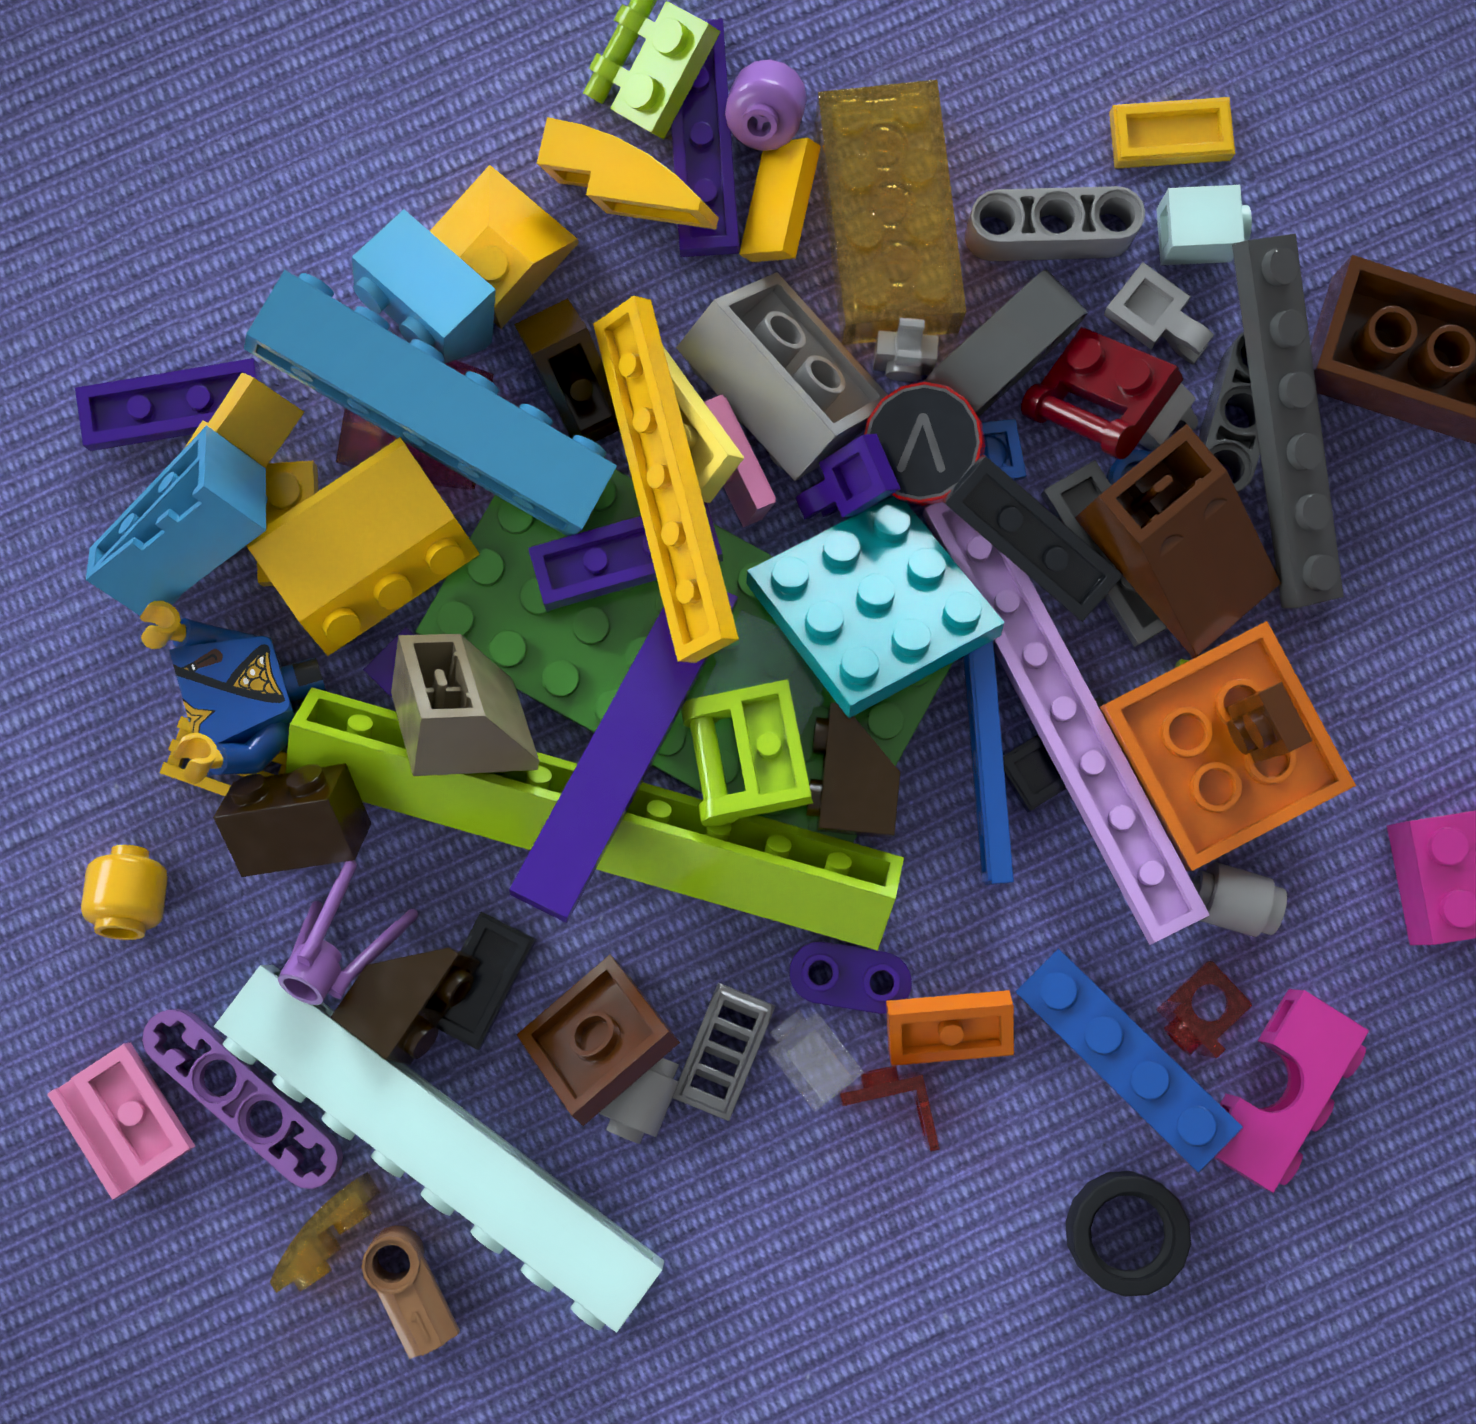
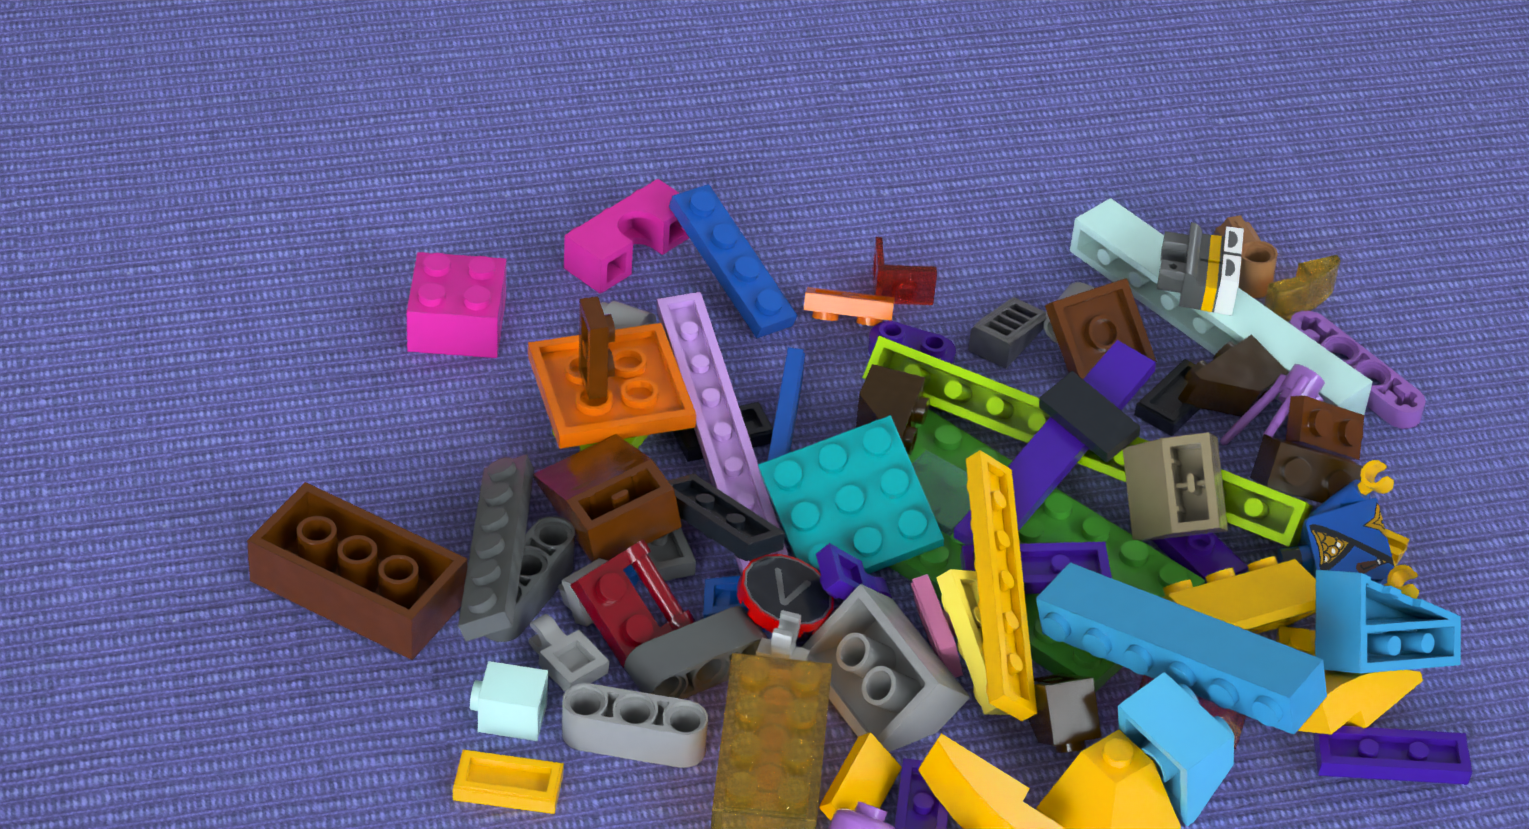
camera: 170 degrees left, 40 degrees down
(121, 1120) = (1441, 369): bright pink plate -> none
(124, 893) = (1436, 473): yellow head -> none
(275, 916) = (1325, 427): none -> reddish brown plate
(463, 1203) = (1202, 268): none -> dark grey hips
(588, 773) = (1089, 416): none -> black tile
(766, 747) = (952, 426): lime plate -> none
(813, 1058) = (947, 304): clear brick -> none
(1174, 1247) = (760, 175): black tyre -> none
(1187, 1028) = (682, 275): clear red bracket -> none

